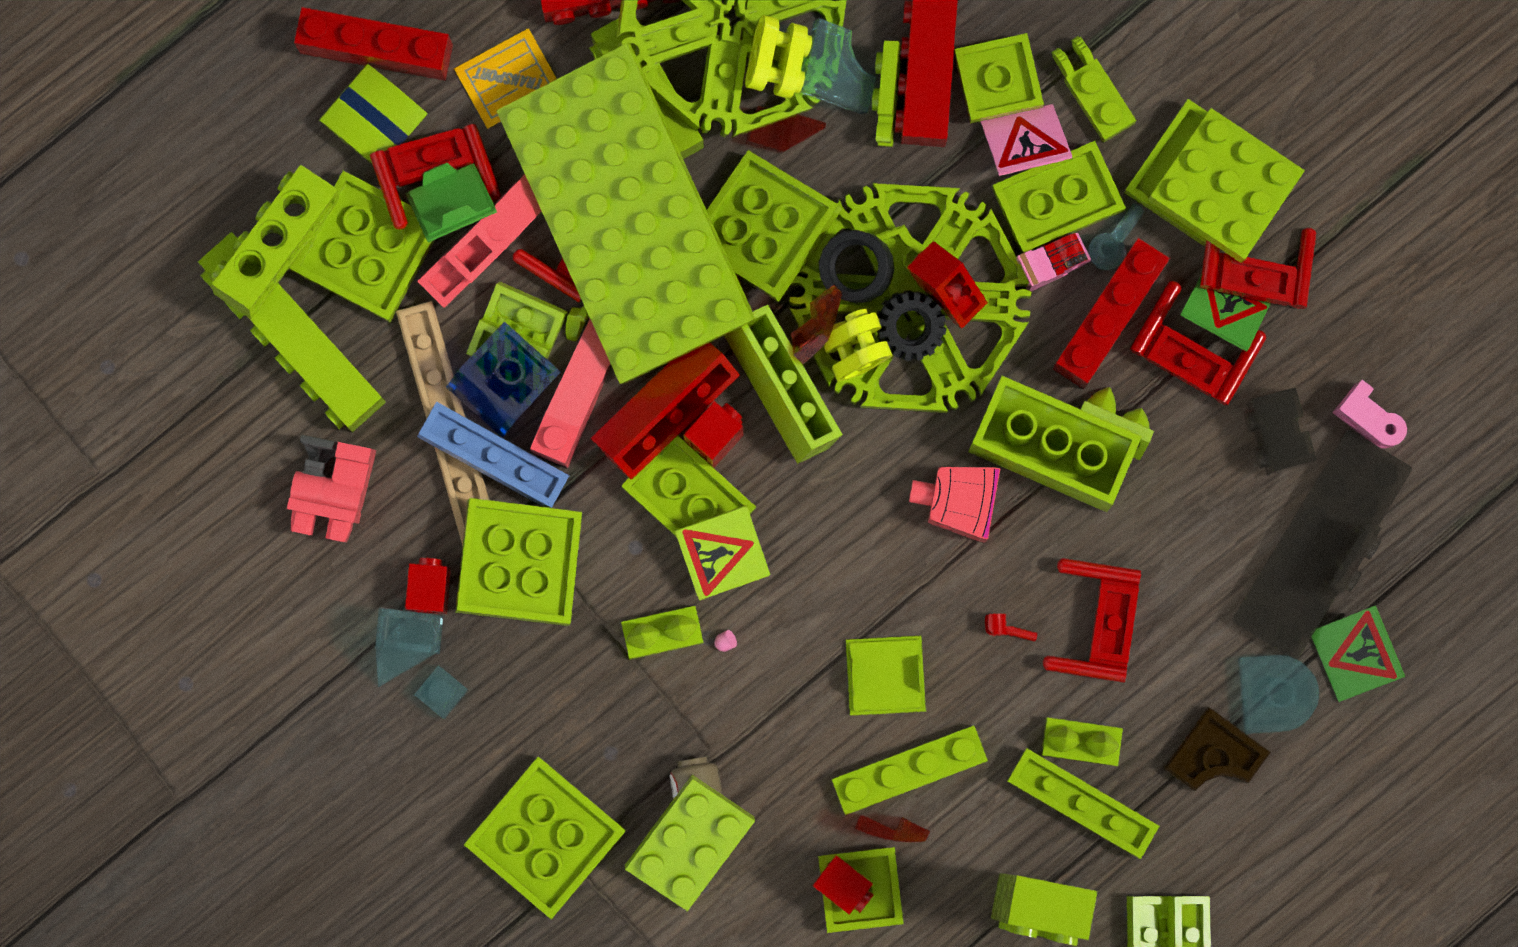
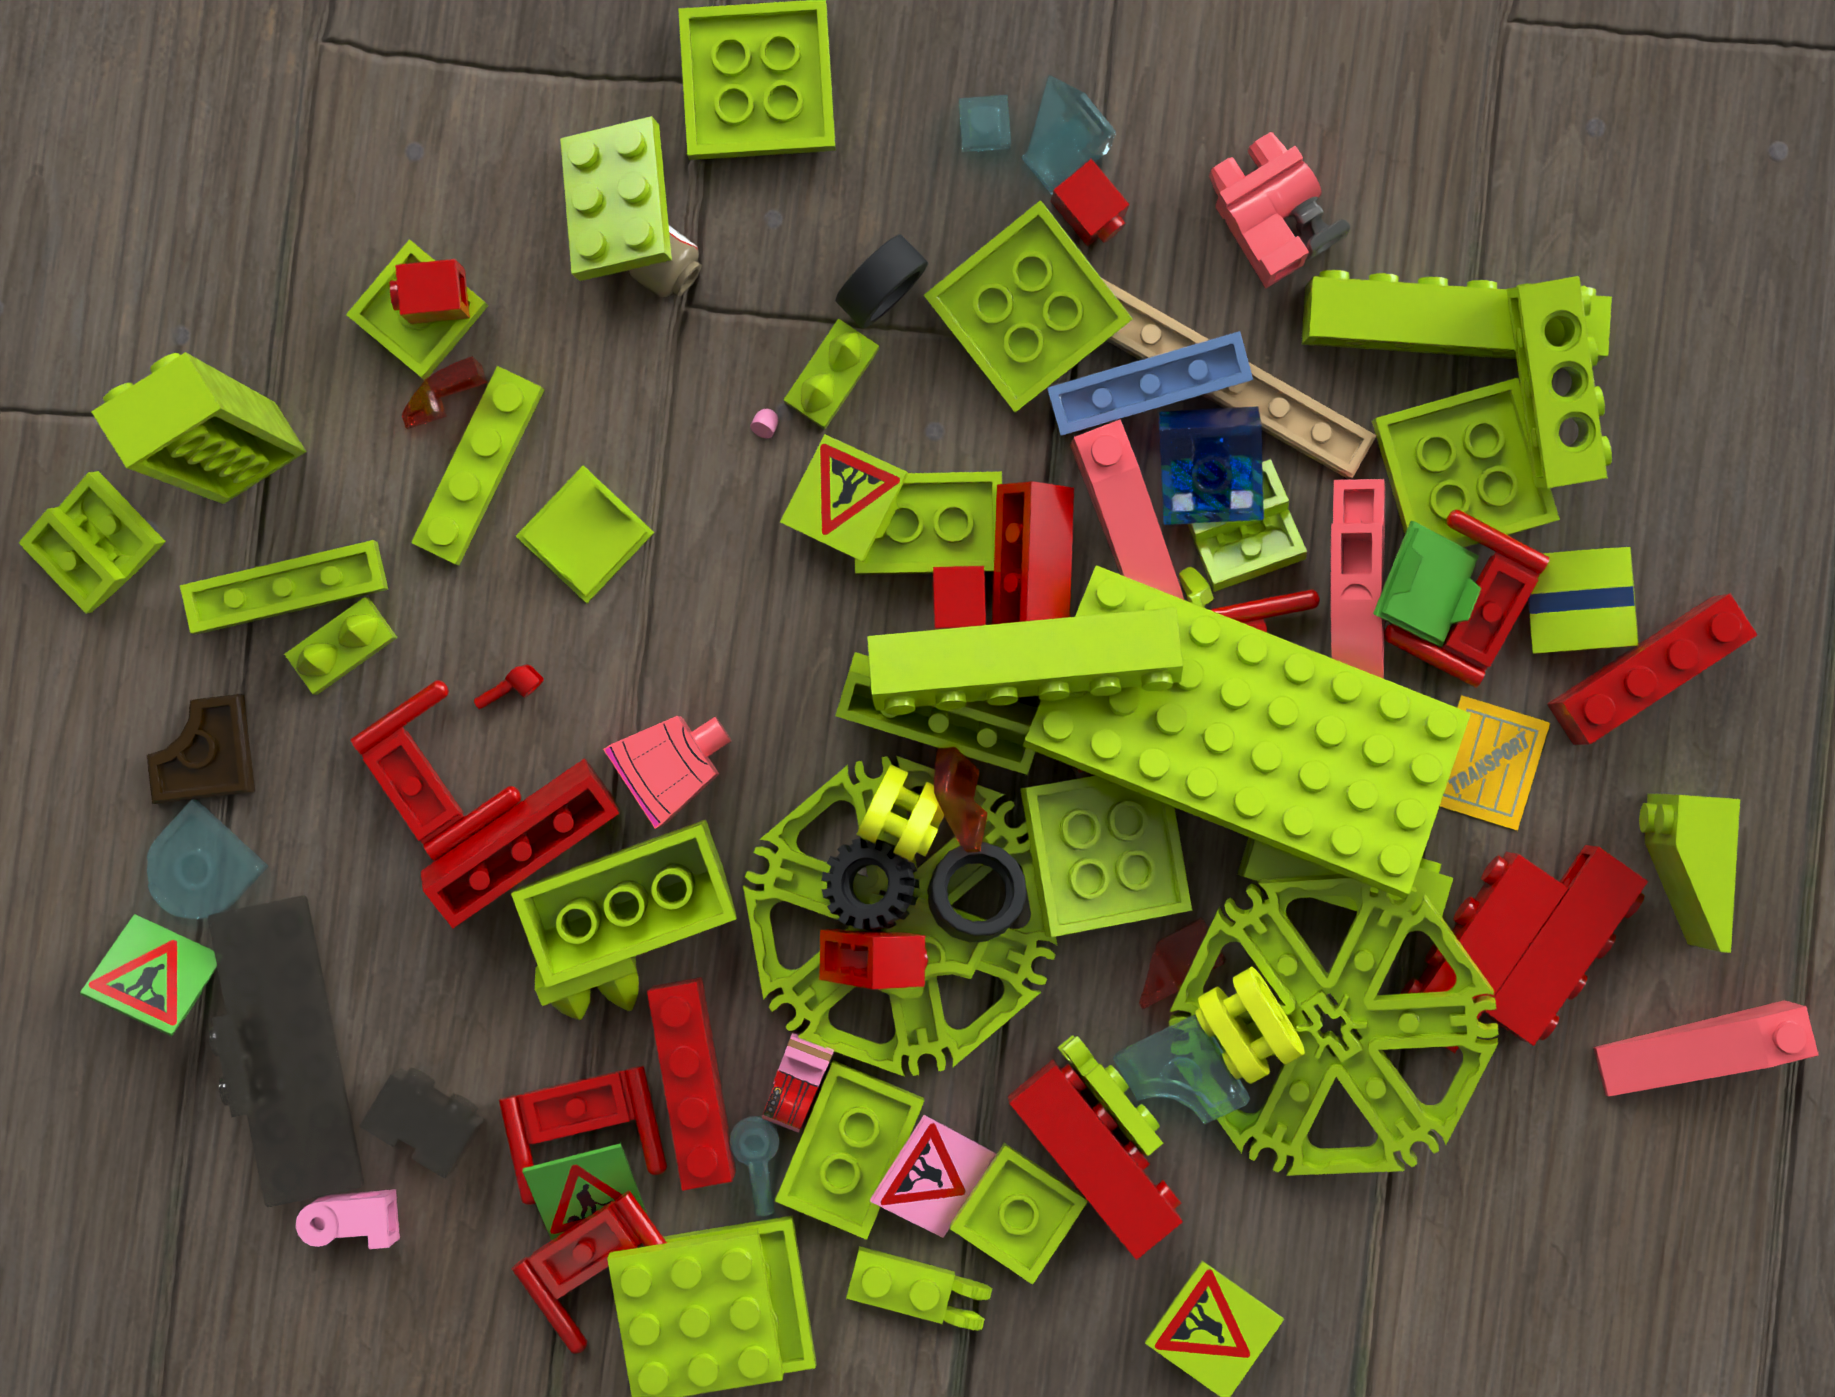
camera: 135 degrees right, 5 degrees up
(586, 652) = (881, 281): none -> black tyre
(711, 361) = (1025, 660): none -> lime brick
(1083, 533) = (518, 843): none -> red brick

